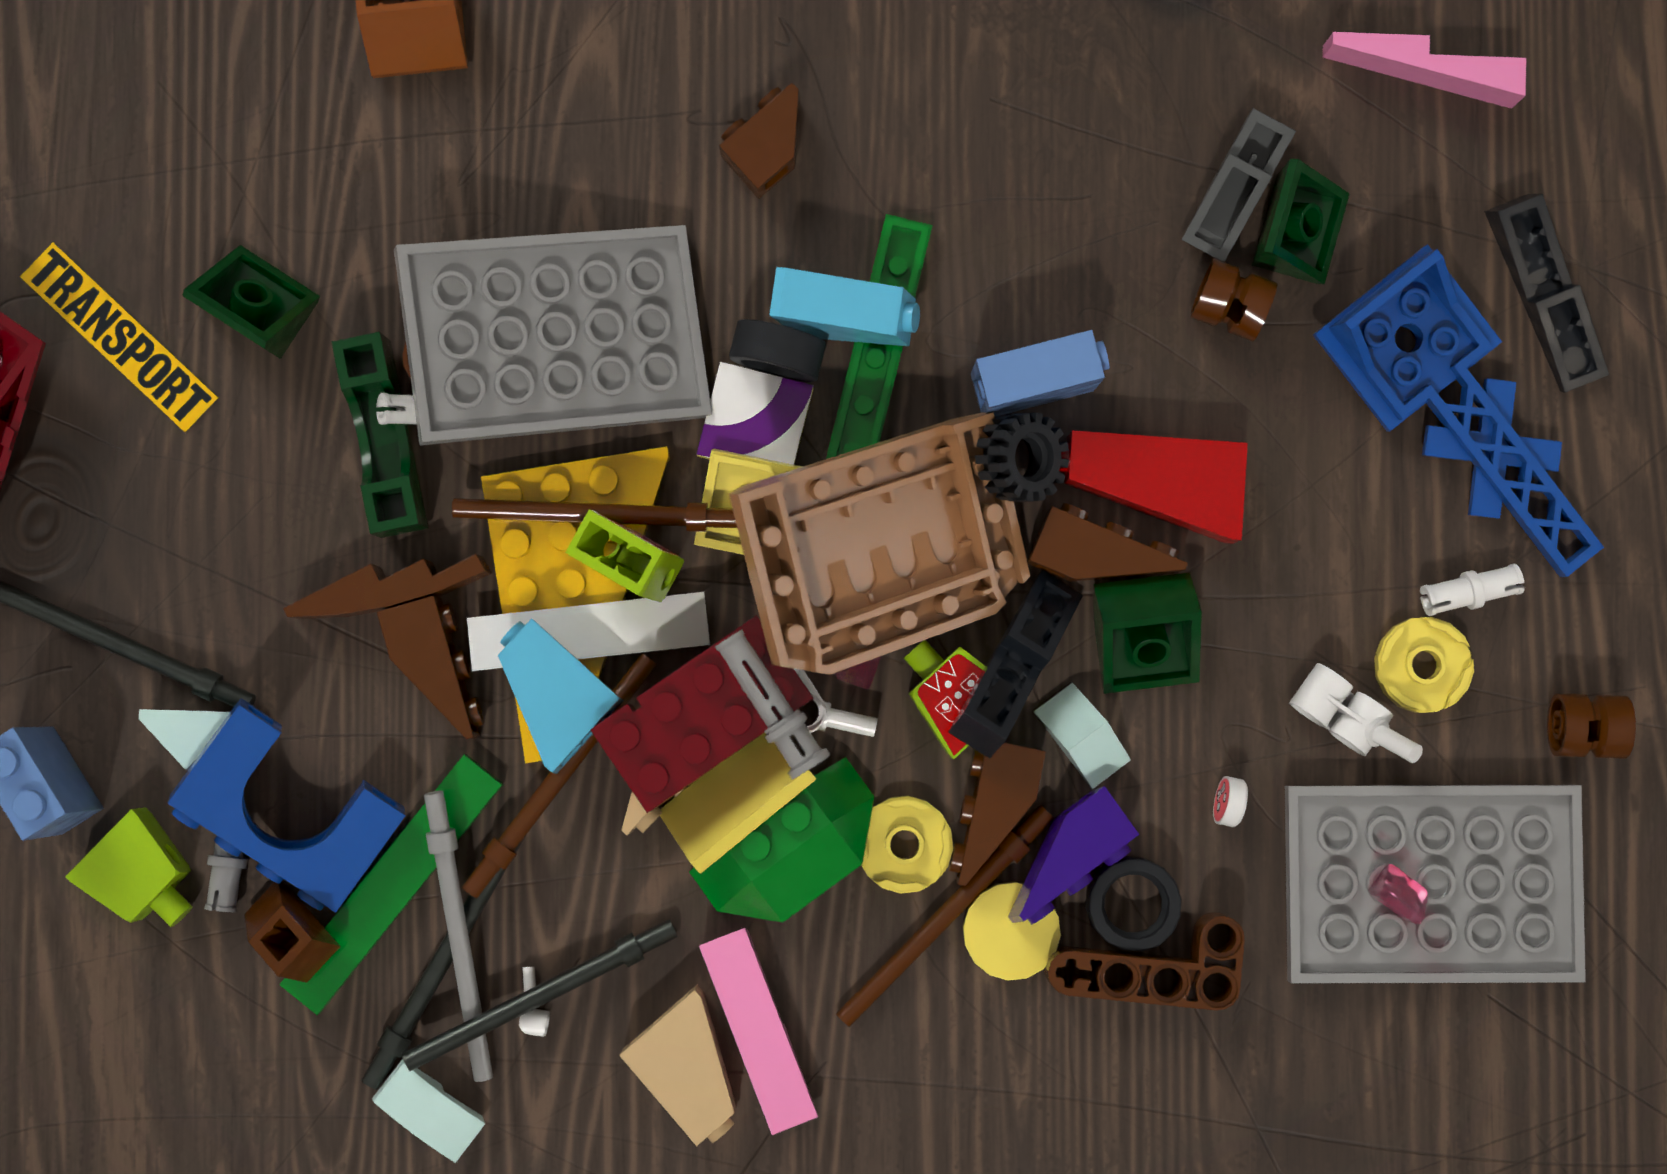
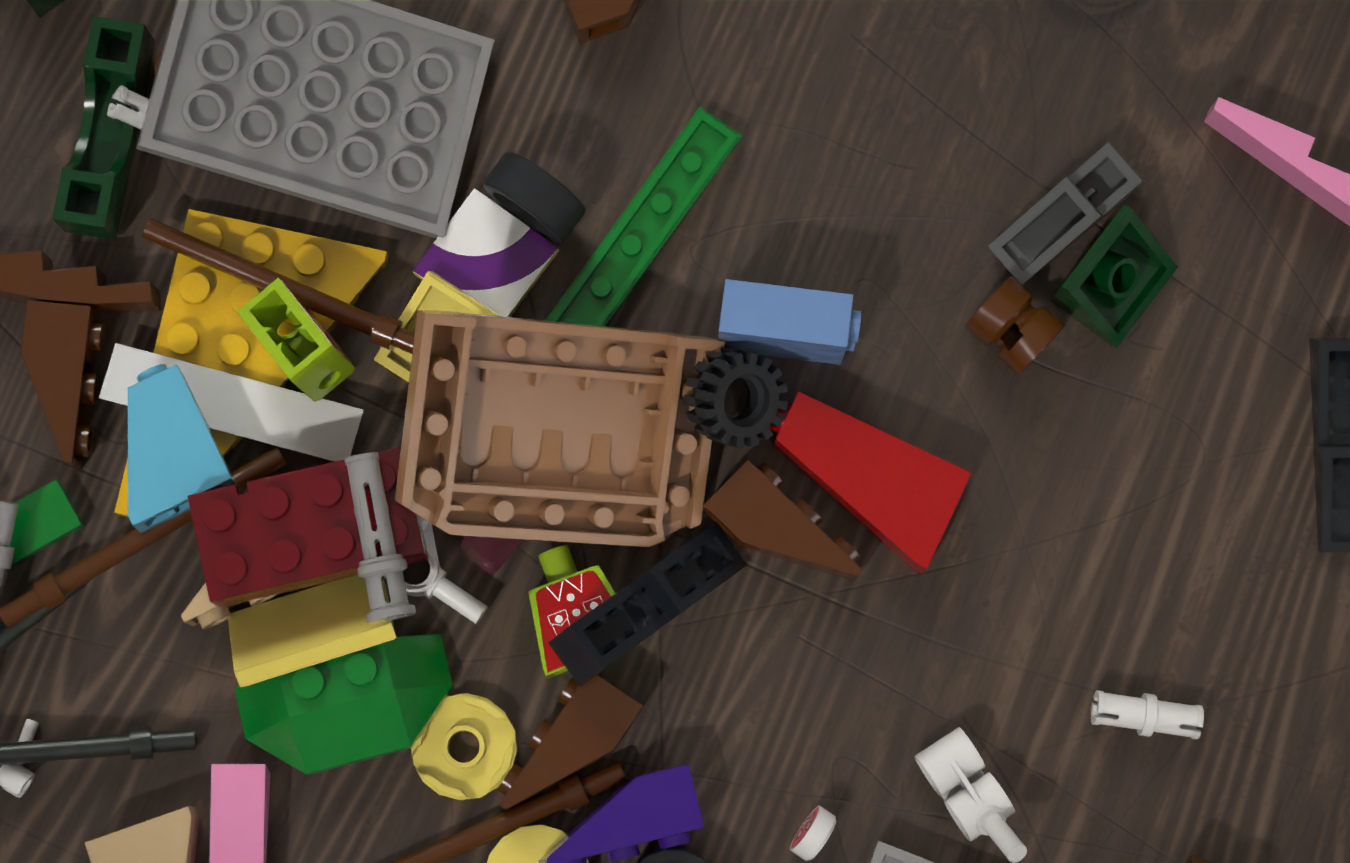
camera: 20 degrees right, 5 degrees down
(844, 308) = (615, 179): medium azure slope -> none
(1082, 735) = (690, 707): light aqua slope -> none
(1147, 632) = (796, 628): dark green slope -> none
(1395, 669) = (1100, 773): light yellow tile -> none
(1448, 342) = (1220, 453): blue piece -> none

